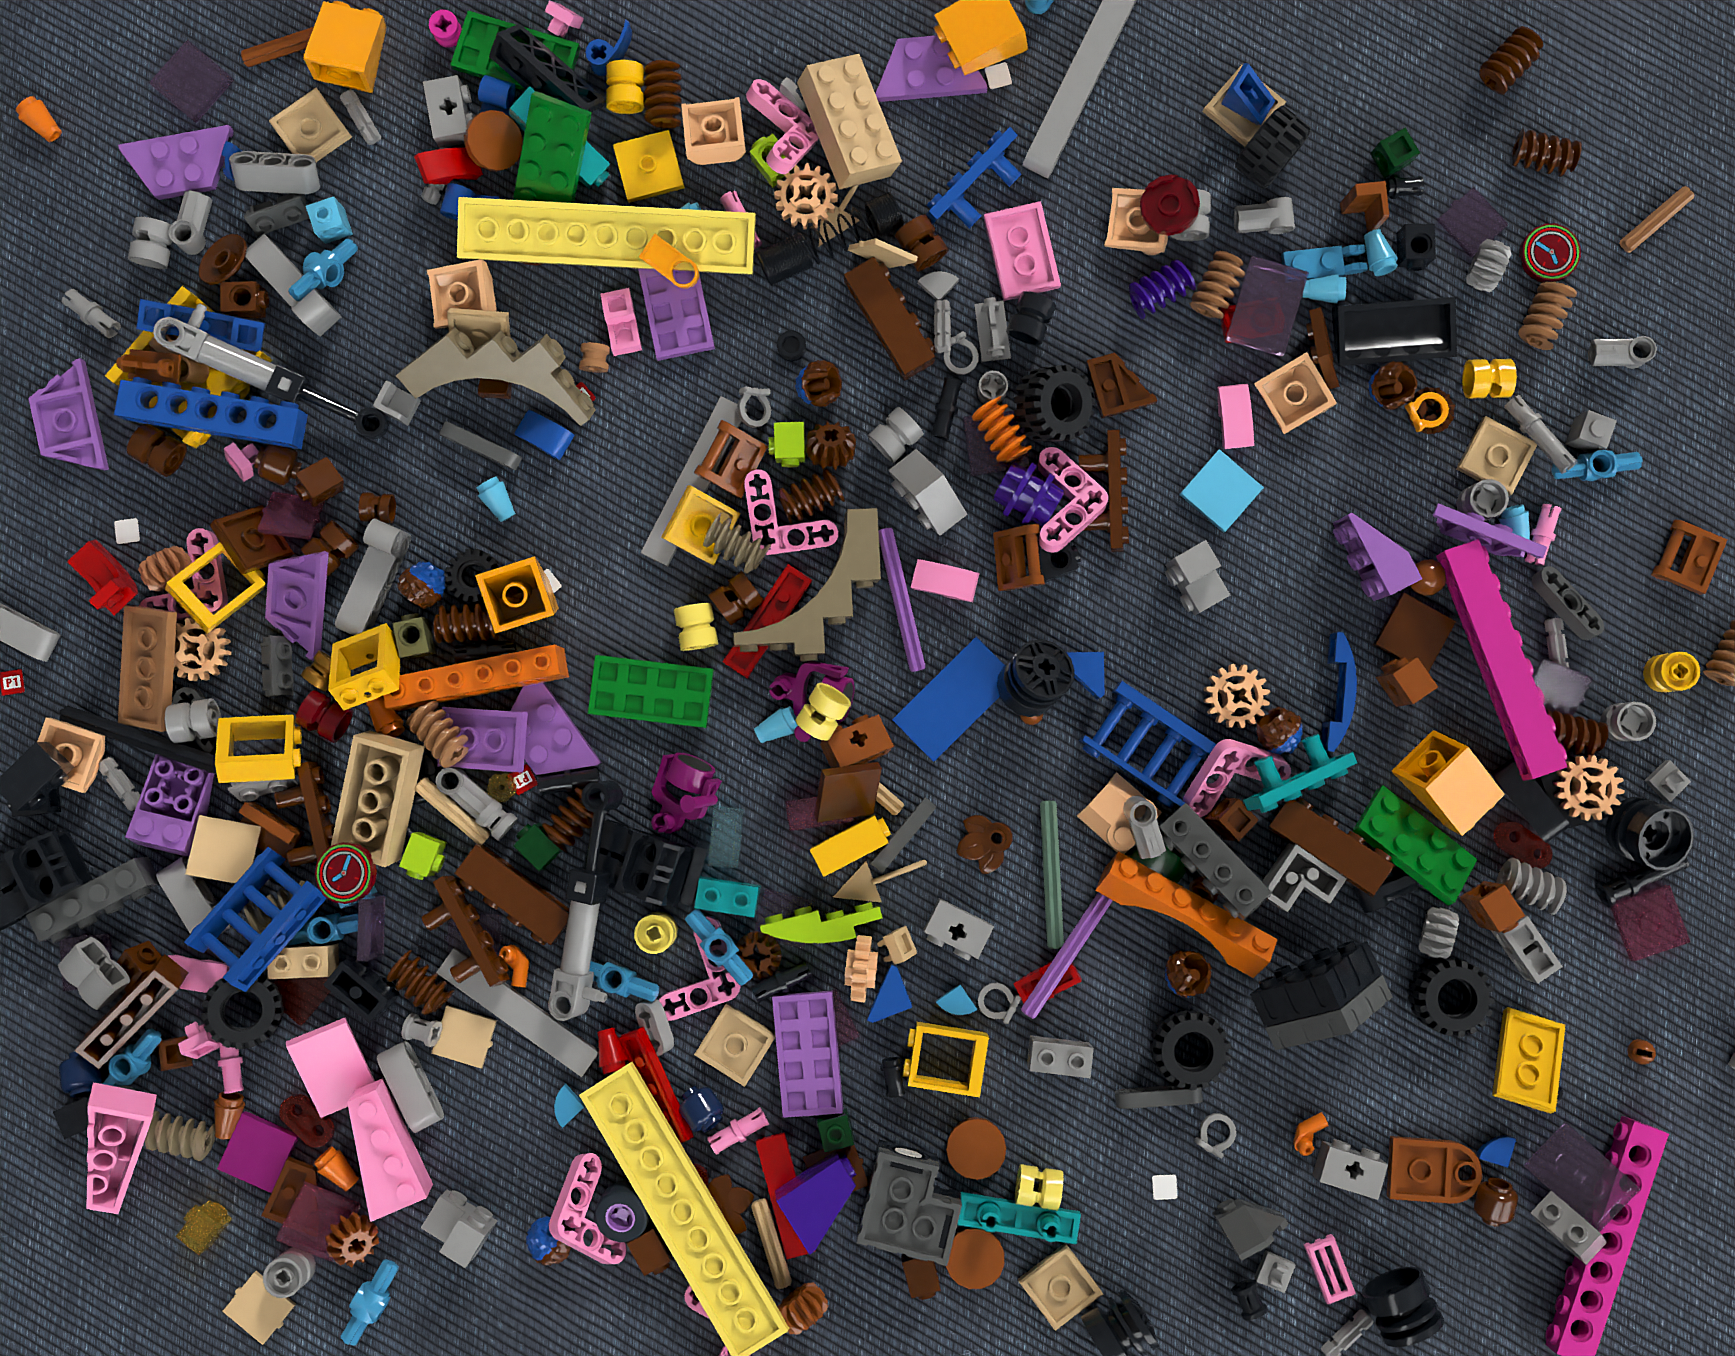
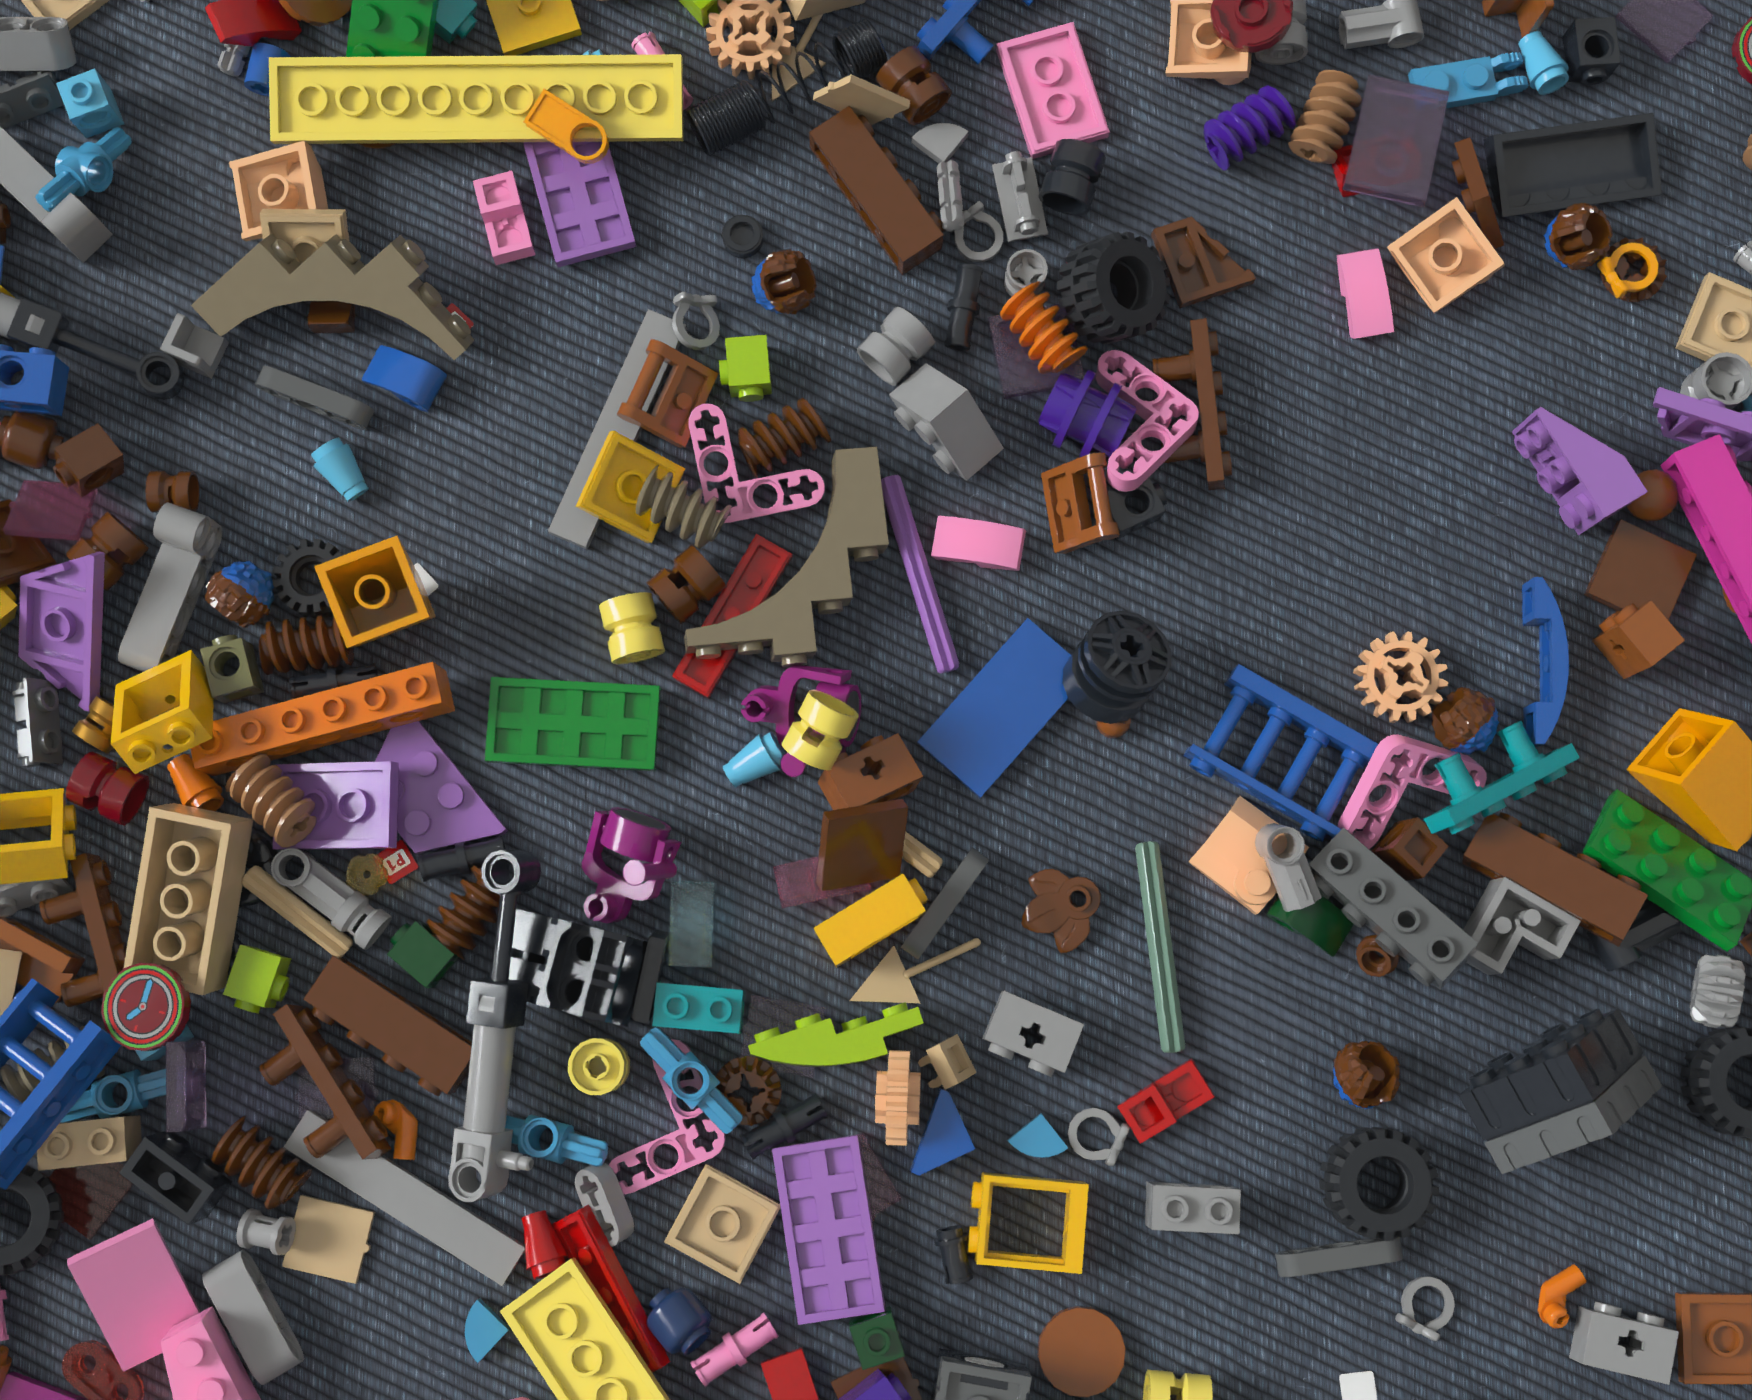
camera: 10 degrees left, 5 degrees down
(594, 357) = (468, 267): medium nougat wheel -> none
(830, 445) = (806, 365): reddish brown gear -> none
(1066, 955) = (1191, 1057): medium lavender axle -> none
(1089, 671) = (1192, 656): blue slope -> none
(1139, 886) = (1433, 1022): orange arch -> none
(1197, 578) = (1330, 515): light grey brick -> none
(1221, 491) = (1354, 396): medium azure tile -> none
(1326, 289) = (1474, 115): medium azure cone -> none
(1488, 265) = (1693, 68): light grey gear -> none
(1495, 379) = (1715, 219): yellow wheel -> none

